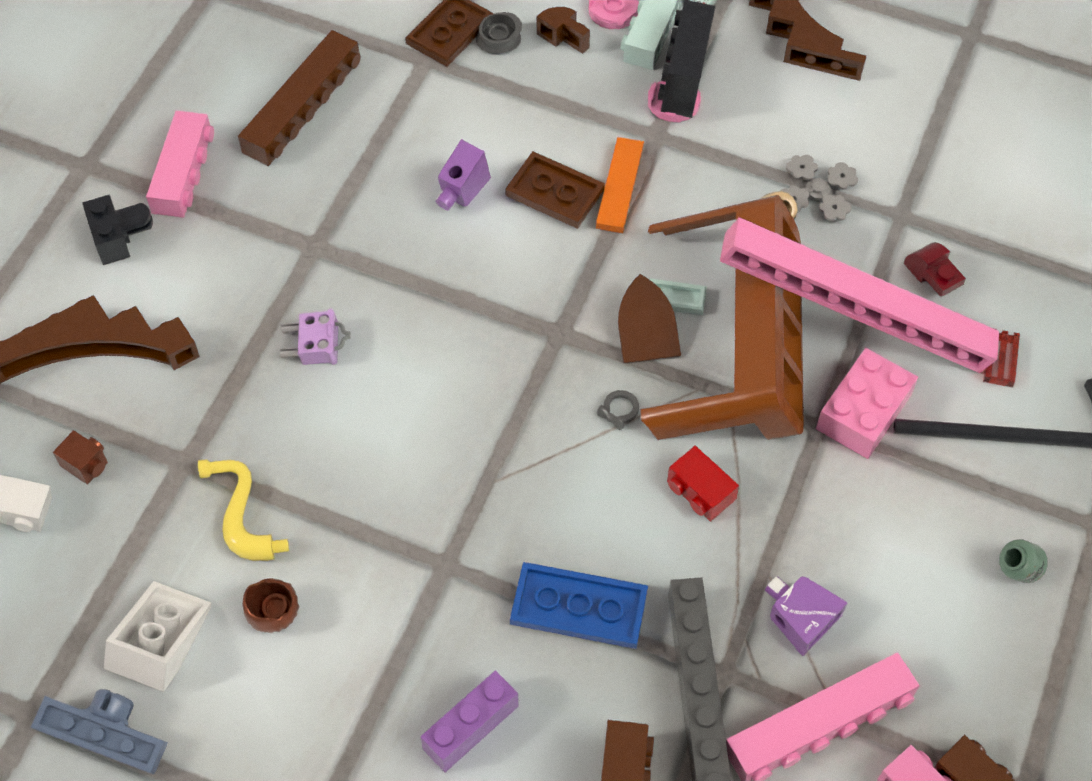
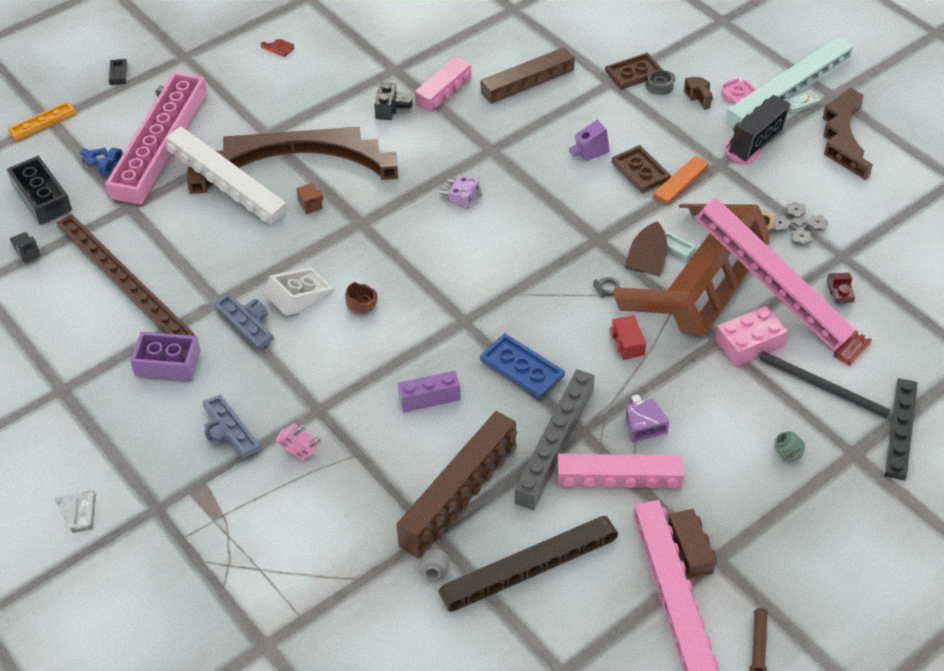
camera: 30 degrees right, 10 degrees down
(235, 536) = (364, 262): light yellow animal -> none

